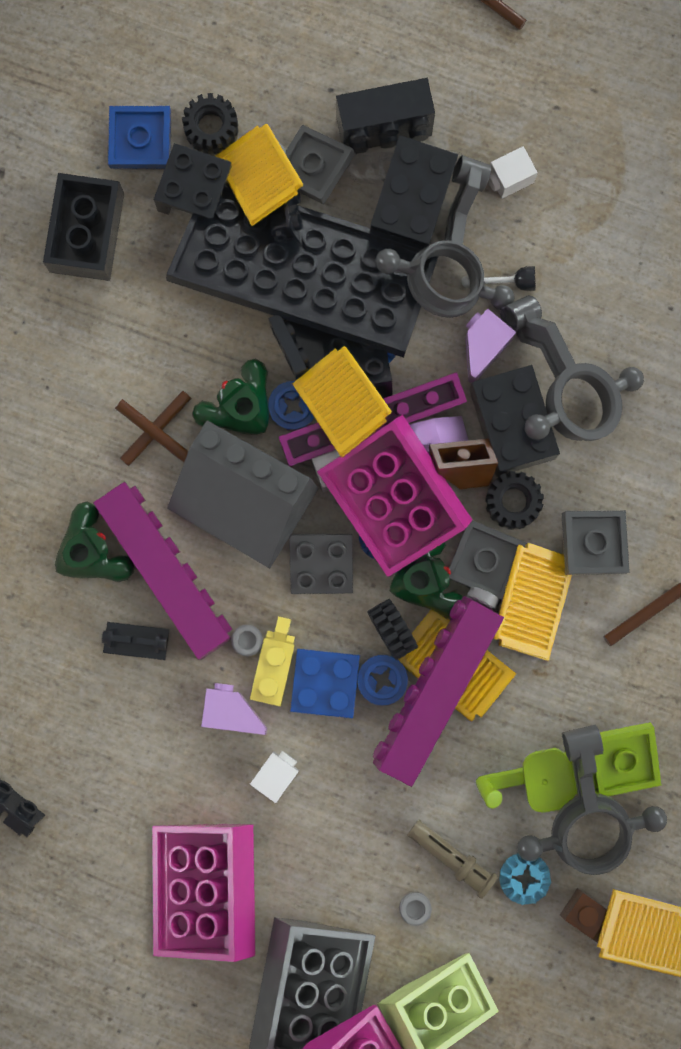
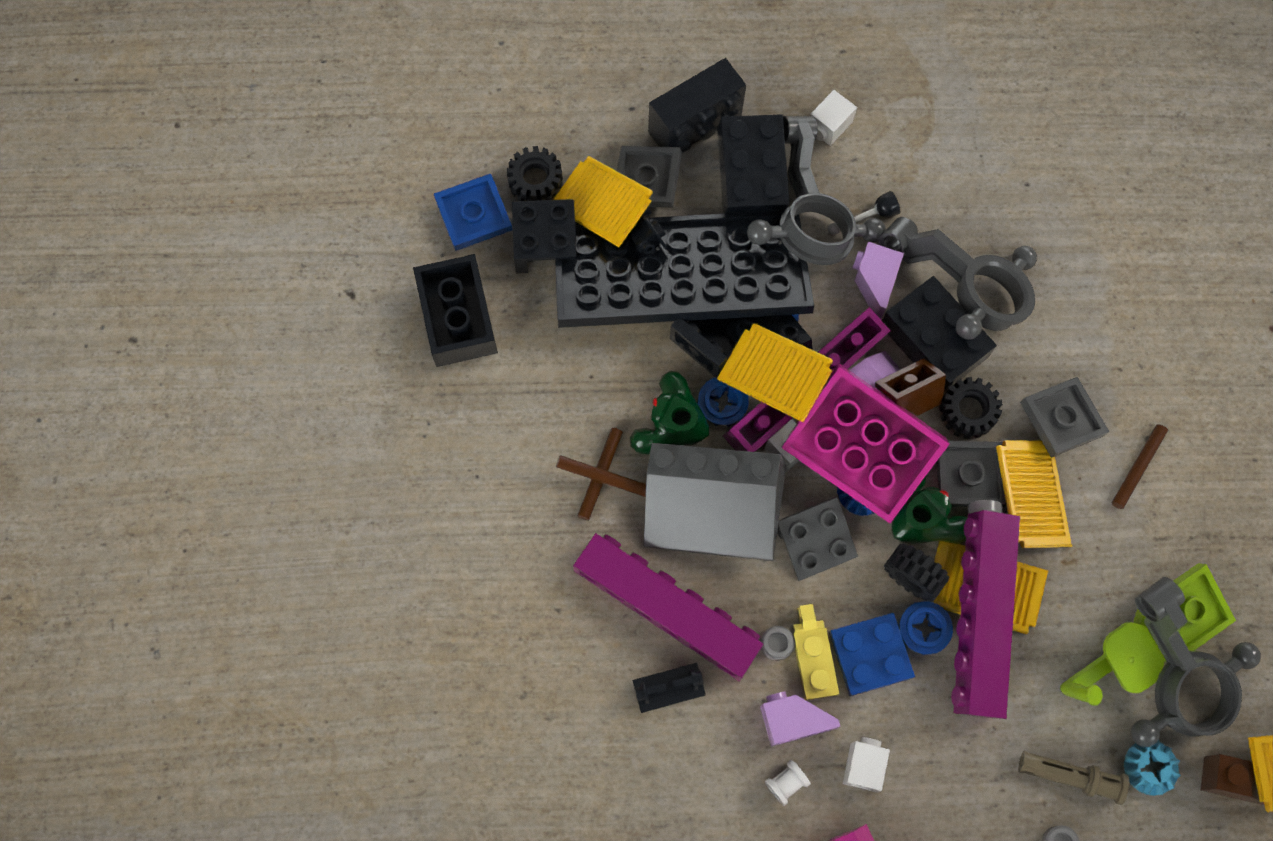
camera: 25 degrees left, 10 degrees down
(85, 550) = (583, 615): dark green head -> none
(201, 762) = (787, 782): none -> white bush

